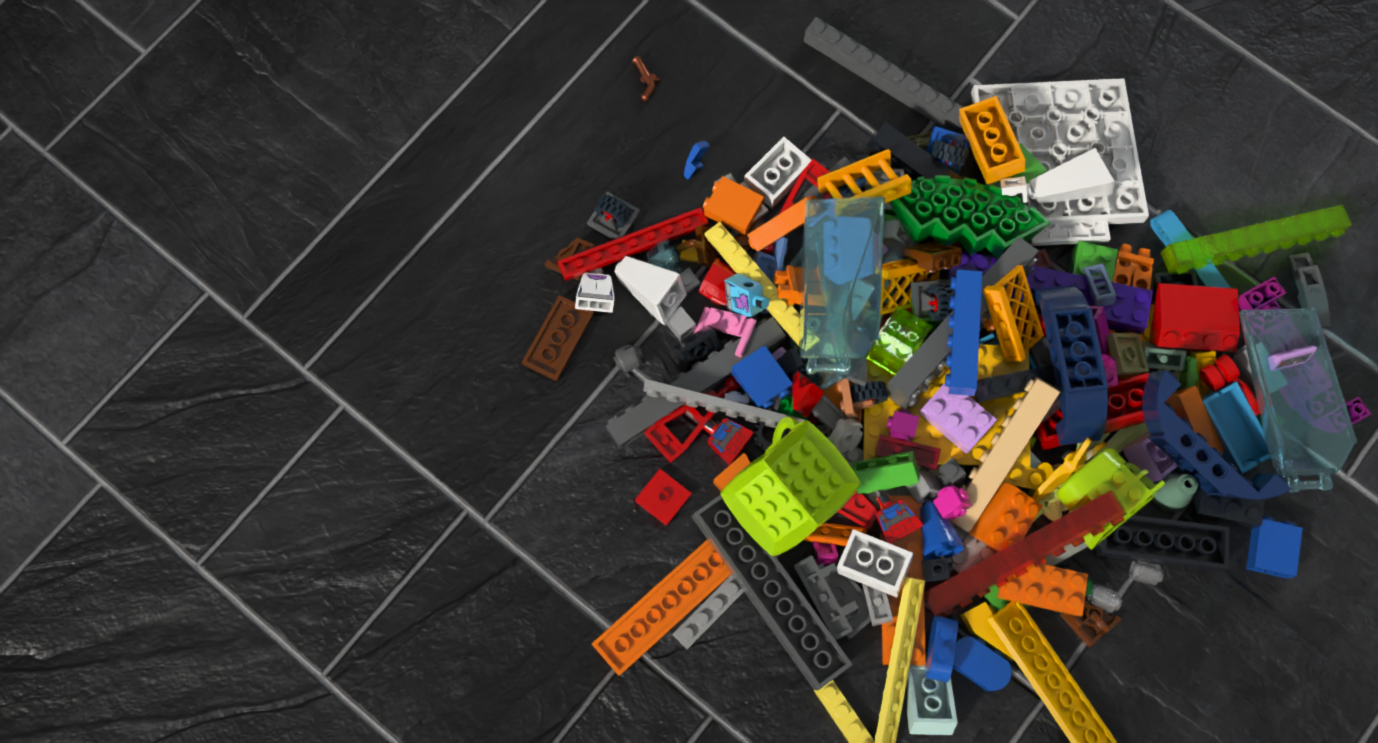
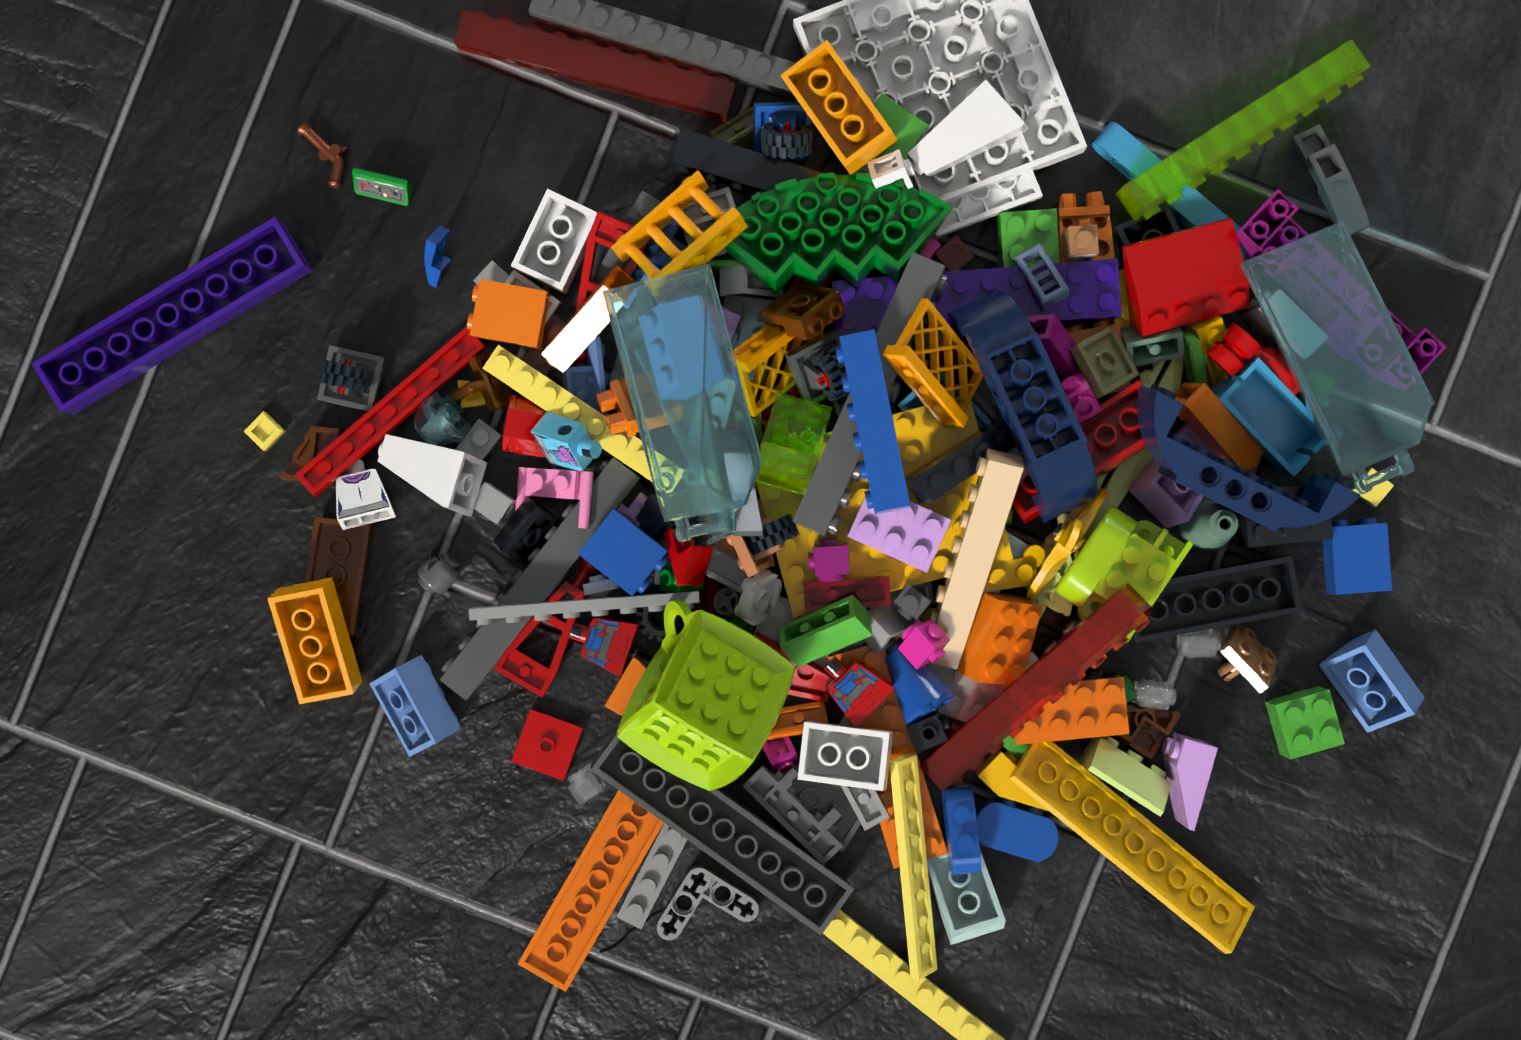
camera: 20 degrees left, 15 degrees up
(513, 143) = (172, 316): none -> dark purple brick
(532, 372) = (315, 640): none -> light orange brick
(544, 233) = (264, 431): none -> light yellow tile
(581, 440) = (415, 705): none -> medium blue slope
(675, 107) = (382, 186): none -> slope
(682, 531) = (585, 784): none -> clear brick
(742, 637) = (706, 891): none -> light grey beam
(837, 77) = (595, 65): none -> clear red brick
(1072, 648) = (1127, 773): none -> yellowish green slope
(1116, 660) = (1188, 769): none -> lavender slope
(1130, 272) = (1080, 242): none -> medium nougat brick
(1180, 592) = (1247, 657): none -> medium nougat plate
(1211, 653) = (1304, 722): none -> bright green brick
(1267, 640) = (1372, 681): none -> medium blue slope
(1290, 357) = (1322, 303): lavender slope -> none
(1295, 504) = (1377, 493): none -> light yellow tile

